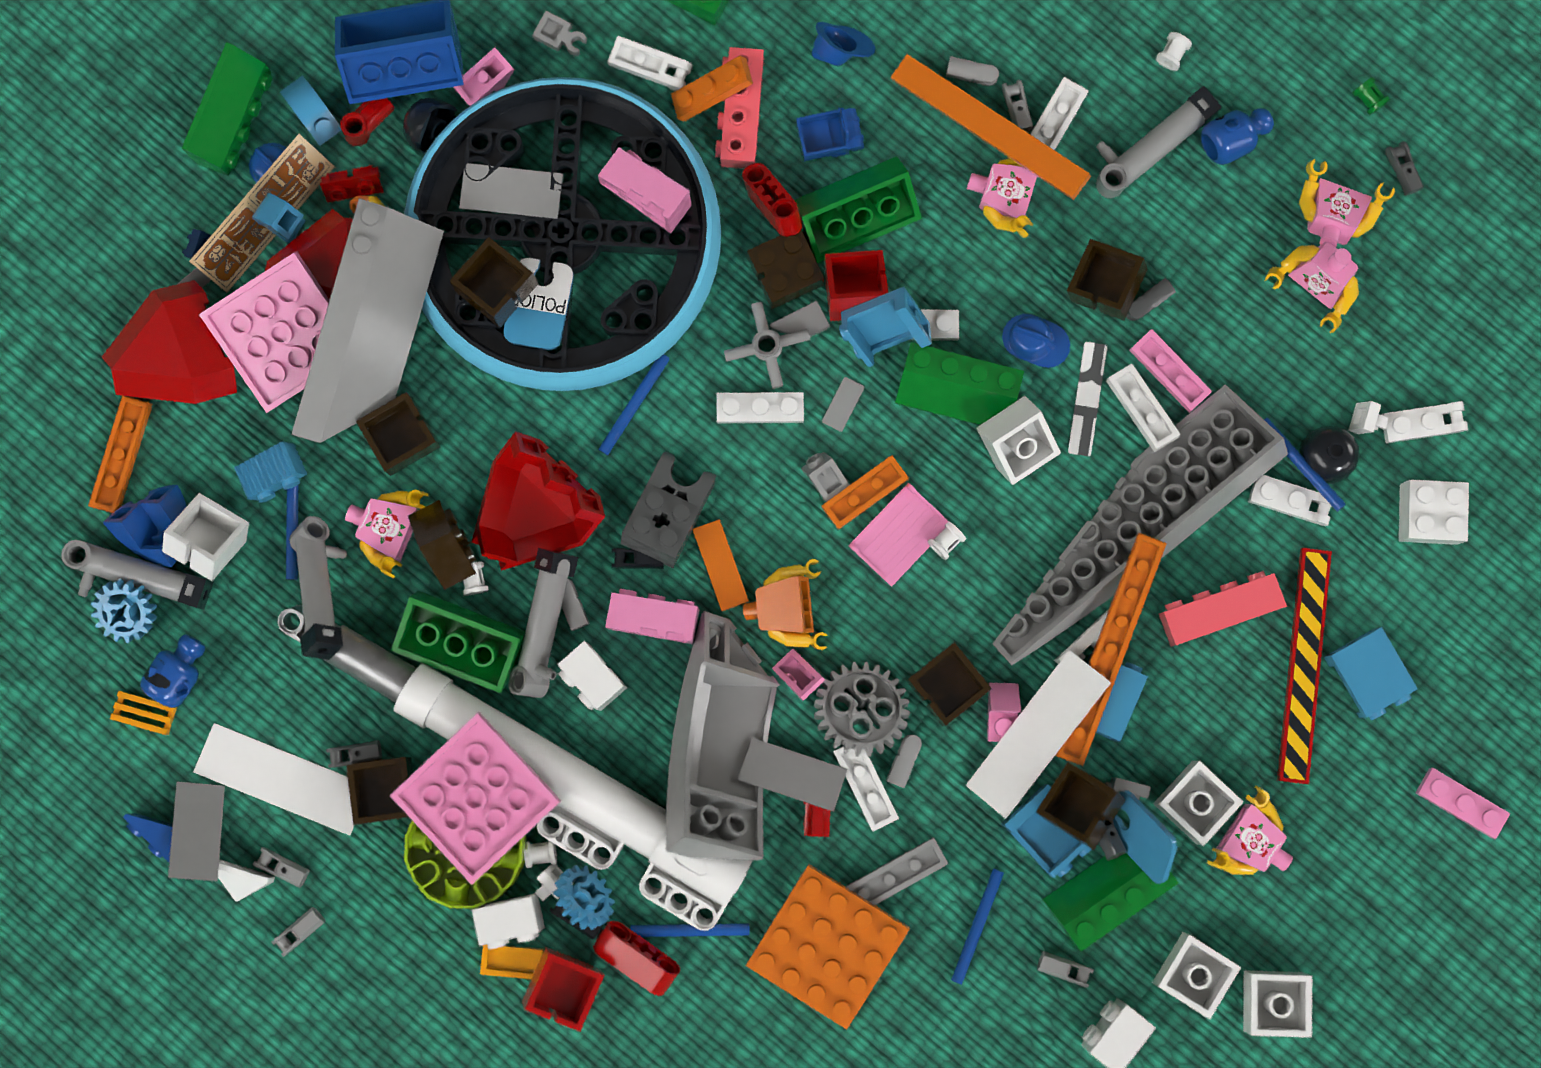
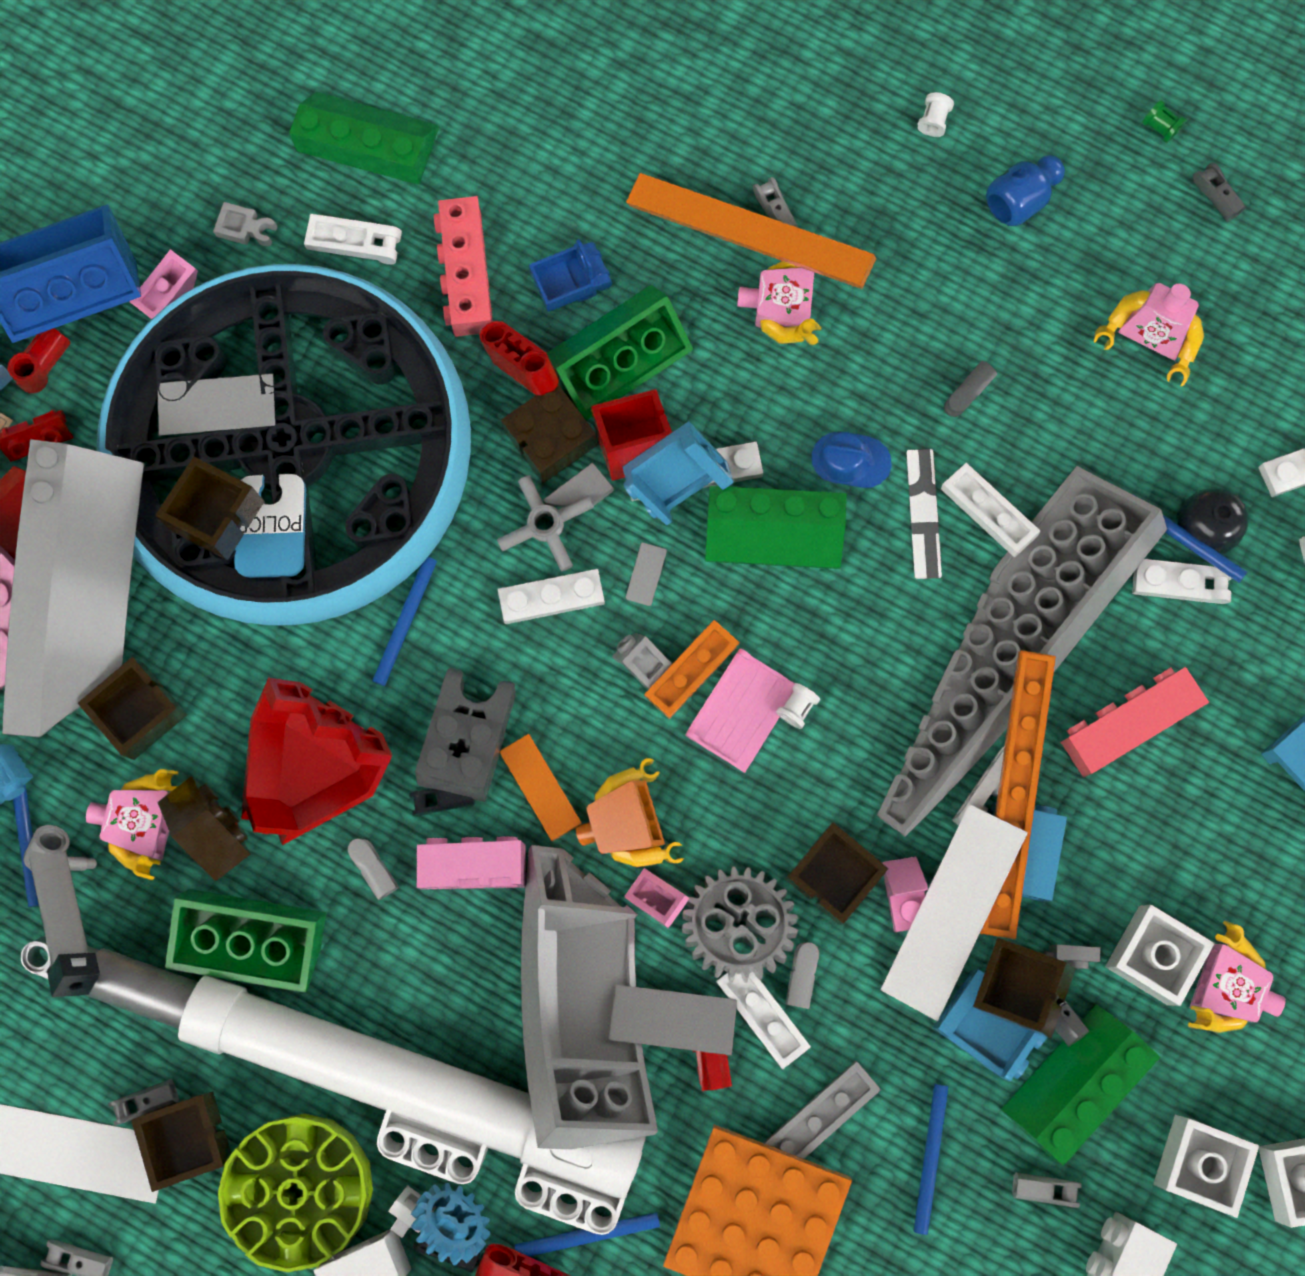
camera: 10 degrees left, 5 degrees down
(426, 121) = (105, 346): black cylinder -> none
(475, 583) = (254, 865): white bush -> none
(475, 798) = (293, 1129): bright pink plate -> none
(532, 675) = (340, 960): light grey piece -> none
(540, 853) = (388, 1179): white bush -> none
(591, 676) = (406, 947): white piece -> none
(646, 189) = (370, 369): bright pink wedge -> none
(712, 88) = (427, 249): orange plate -> none
(840, 43) = (561, 176): blue piece -> none
(972, 71) = (716, 178): light grey bar -> none
(1018, 440) = (857, 573): white brick -> none
(1059, 113) = (824, 201): white plate -> none
(1107, 279) = (918, 373): dark brown piece -> none
(1146, 839) = (1112, 1012): dark azure piece -> none
(1156, 144) = (971, 179): light grey piece -> none
(1170, 370) = (1011, 463): bright pink plate -> none
(1304, 666) = (1242, 770): tile -> none
(1337, 211) = (1158, 249): torso -> none
(1367, 418) = (1245, 471): white tile -> none

